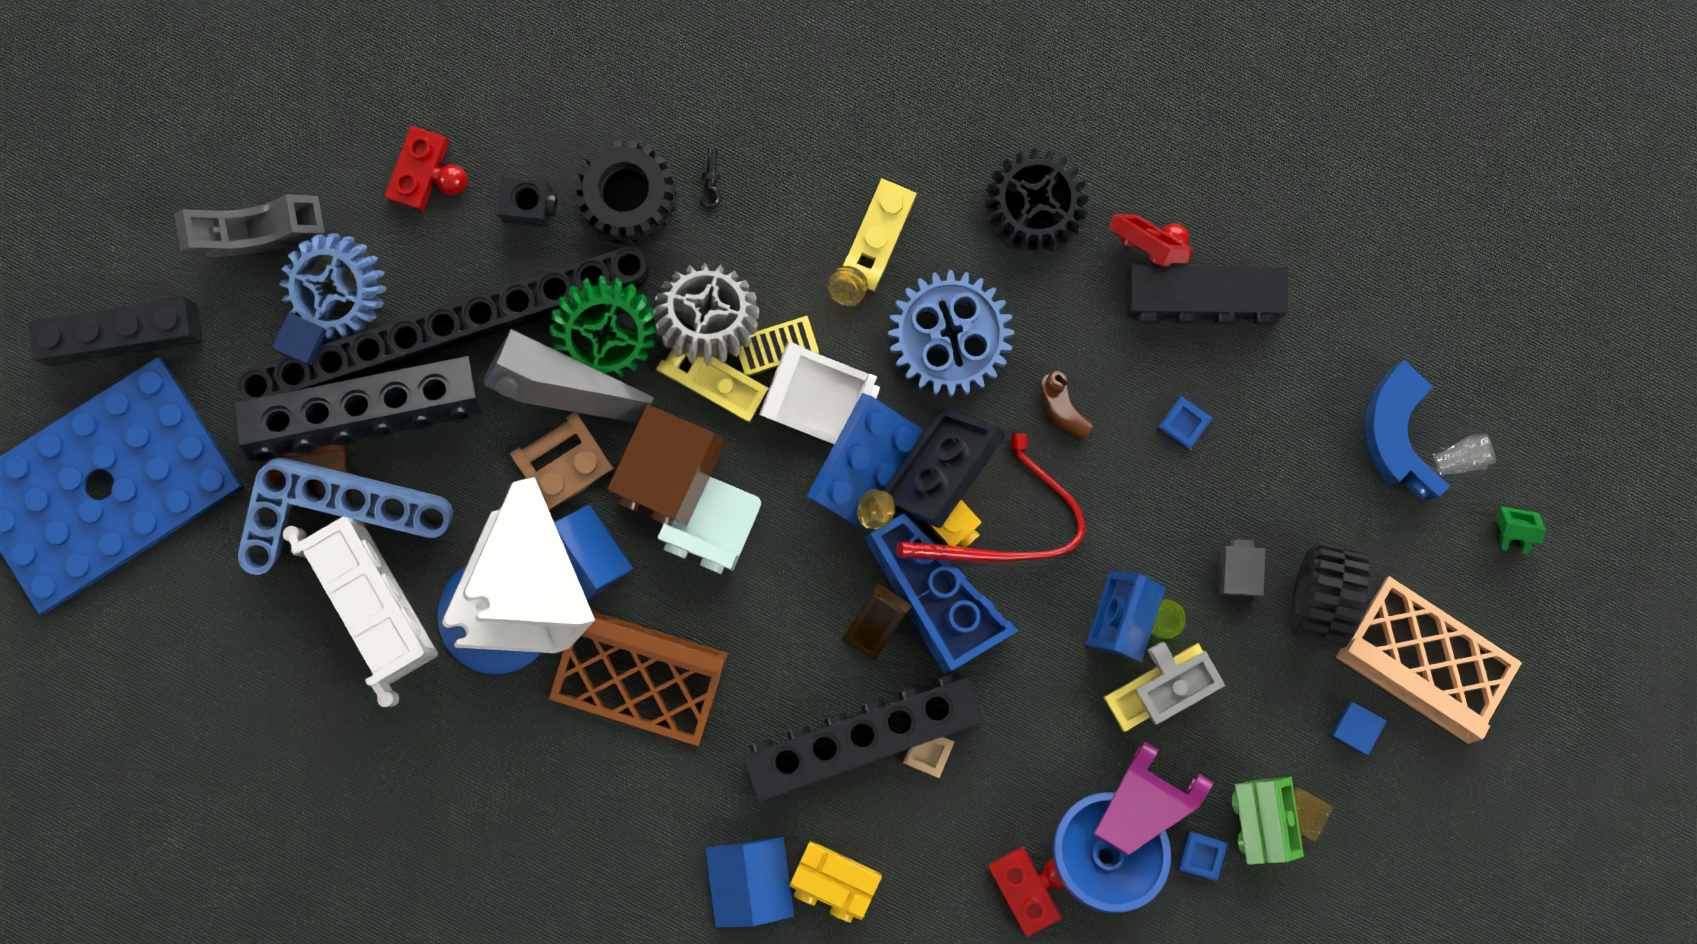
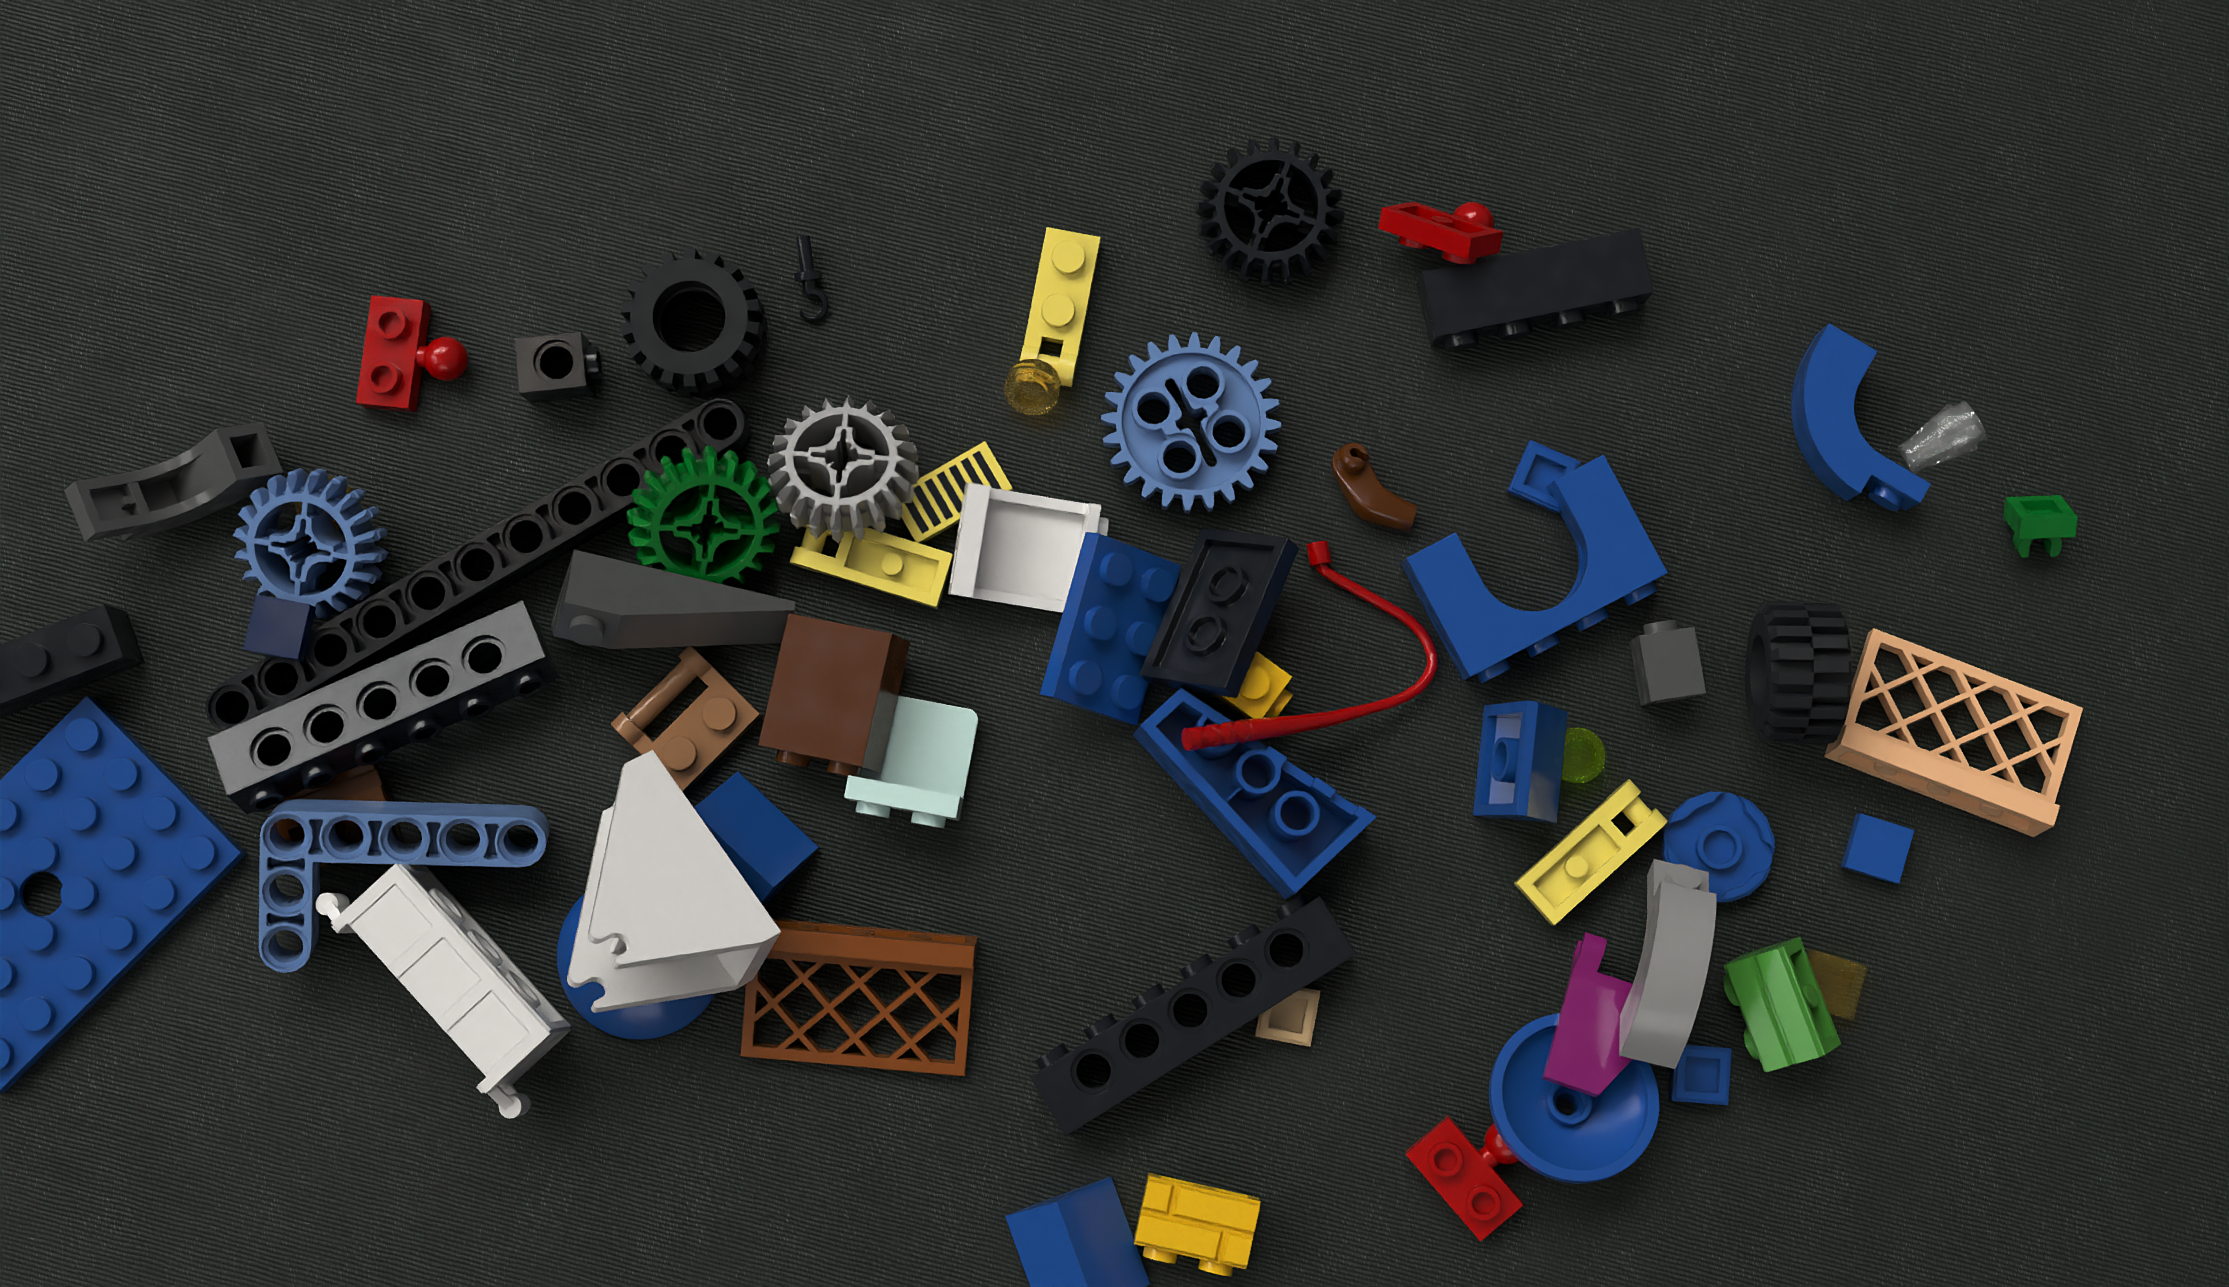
camera: 10 degrees left, 0 degrees up
(875, 509) = (1140, 690): clear yellow tile -> none
(876, 621) = (1176, 847): dark brown tile -> none
(1178, 684) = (1614, 843): light grey plate -> none
(1198, 776) = (1671, 965): none -> light grey arch
(1219, 492) = (1612, 564): none -> blue arch
(1250, 703) = (1723, 838): none -> blue tile

